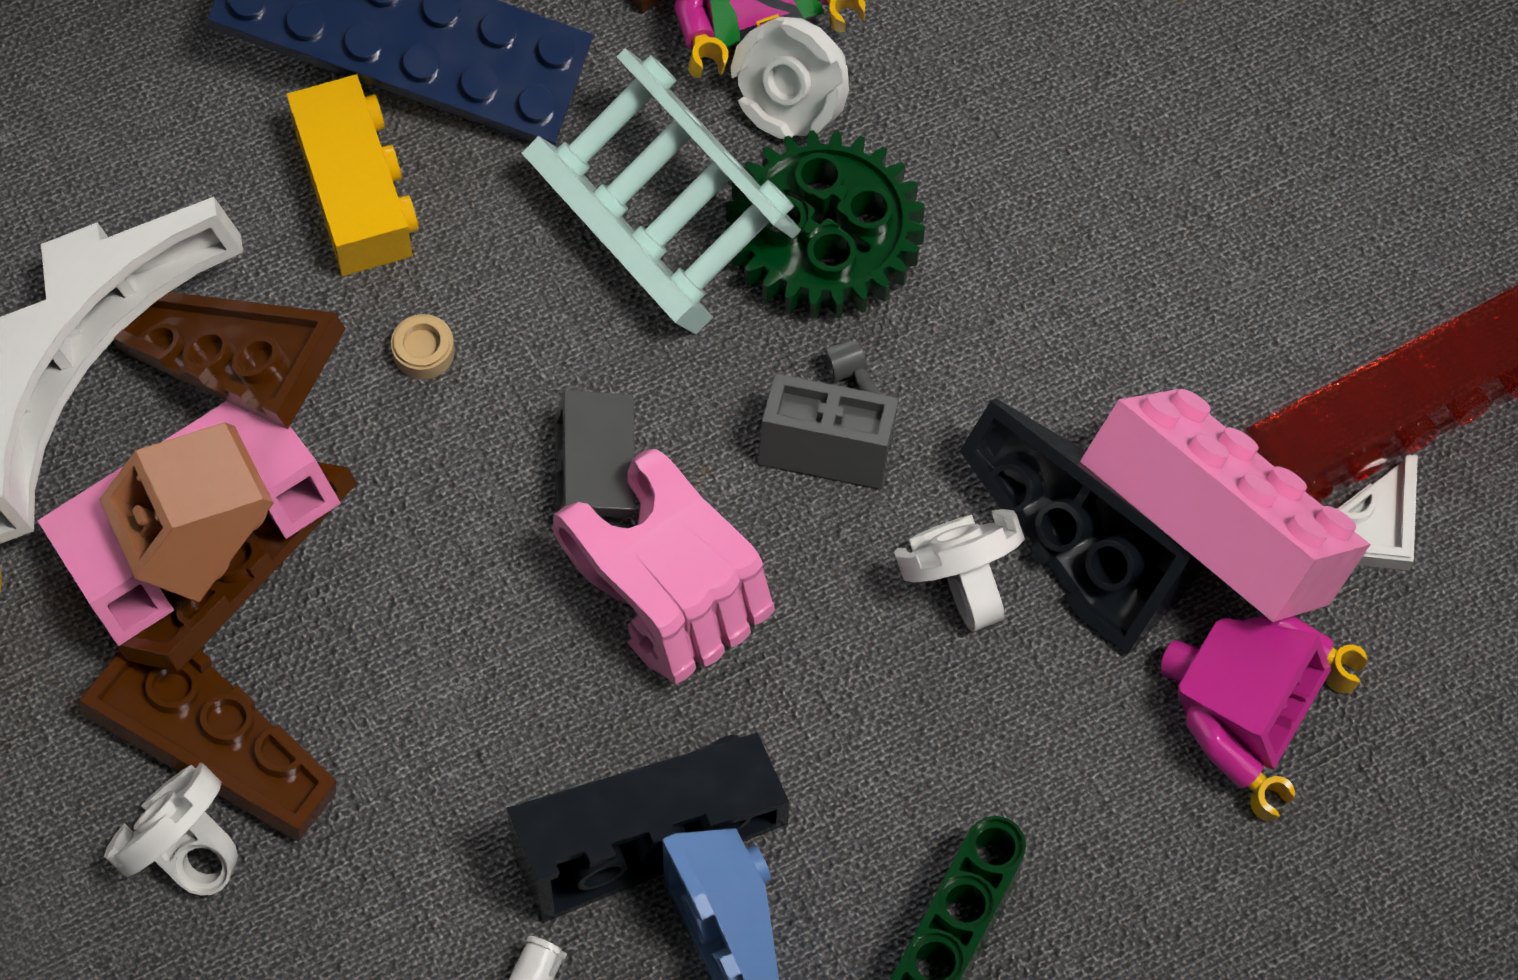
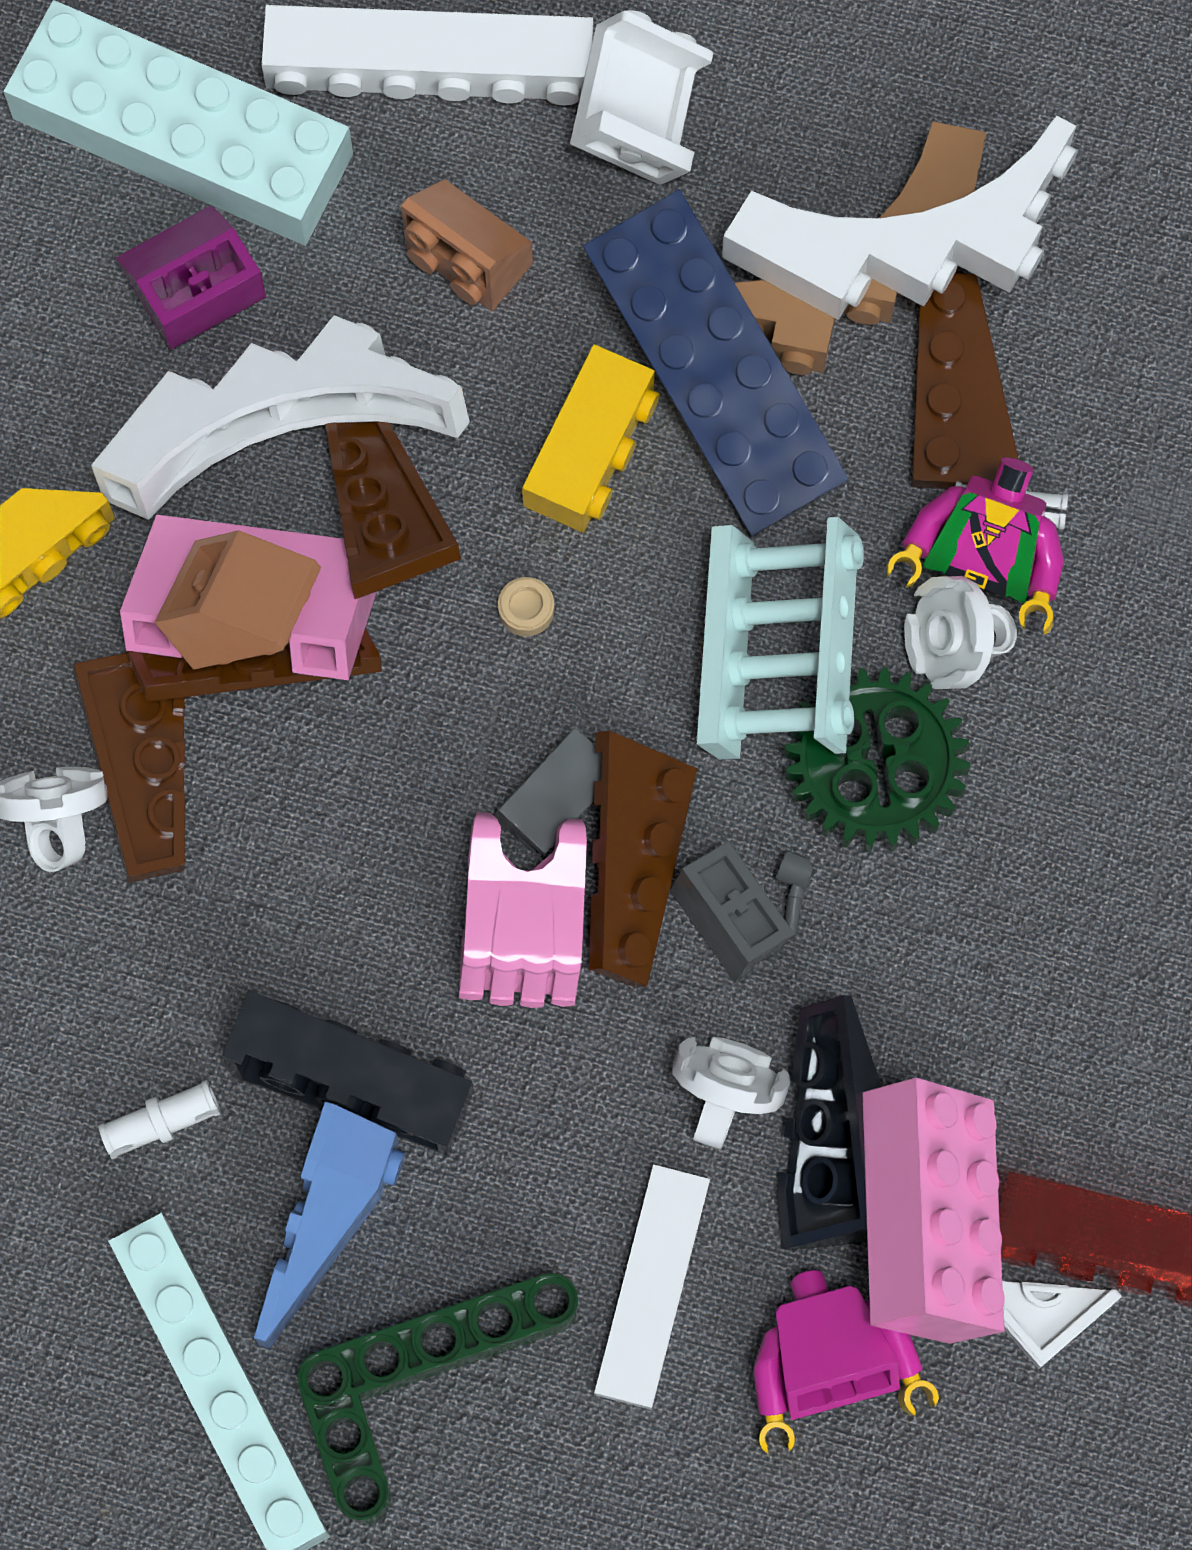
camera: 45 degrees right, 10 degrees up
(98, 110) = (464, 244): none -> nougat slope
(707, 446) = (641, 830): none -> reddish brown wing
(1057, 775) = (652, 1287): none -> white tile

